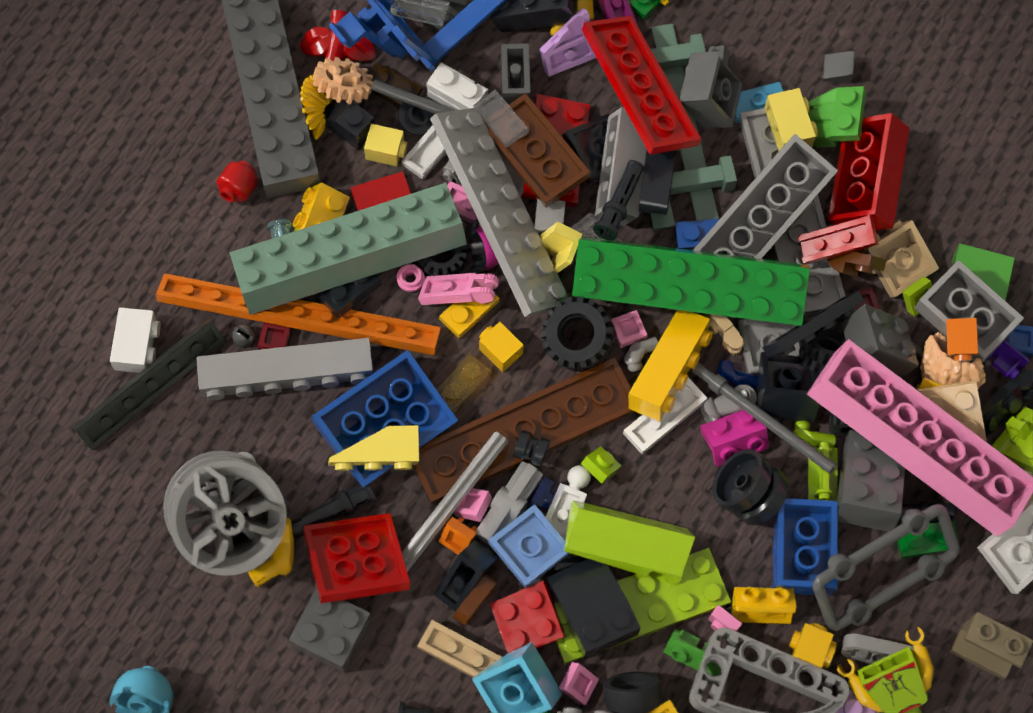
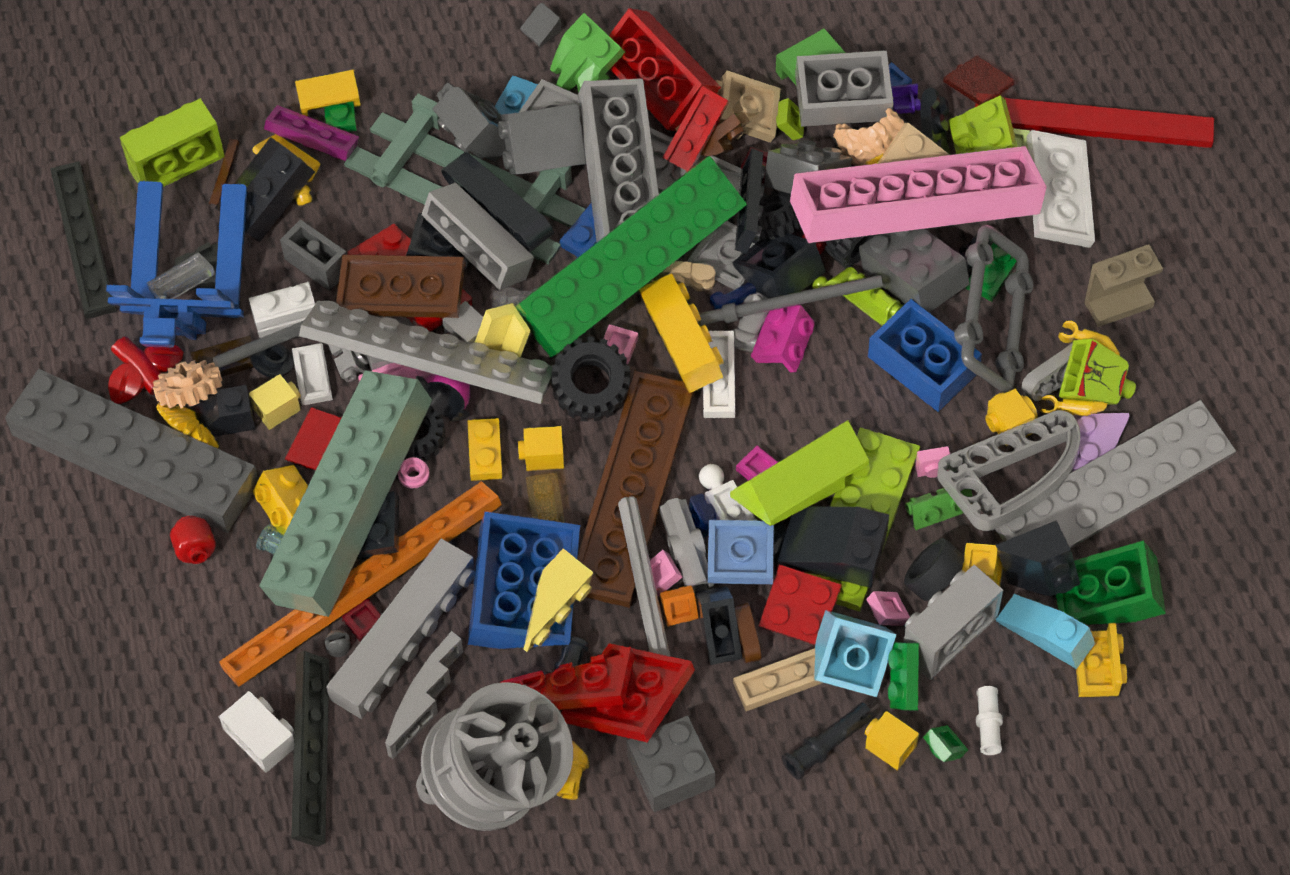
camera: 45 degrees left, 10 degrees down
(236, 425) = (419, 701): none -> light grey slope
(327, 516) = (586, 685): none -> red wing
(458, 288) = (463, 438): bright pink hinge -> none
(501, 118) = (348, 288): clear tile -> none
(525, 445) = (658, 486): black wheel -> none
(567, 46) = (328, 195): lavender wing -> none
(601, 464) = (716, 450): lime plate -> none
(615, 210) = (516, 262): black pin -> none
(617, 499) = (755, 463): none -> dark pink tile
(637, 351) = (644, 354): light grey arm -> none
(641, 85) = (422, 164): red plate -> none
(734, 145) = (542, 139): none -> dark grey panel
(750, 487) = (841, 351): black wheel -> none
(763, 605) = (945, 420): yellow bracket -> none
(789, 116) = (553, 85): light yellow brick -> none
(962, 338) = (864, 102): orange brick -> none

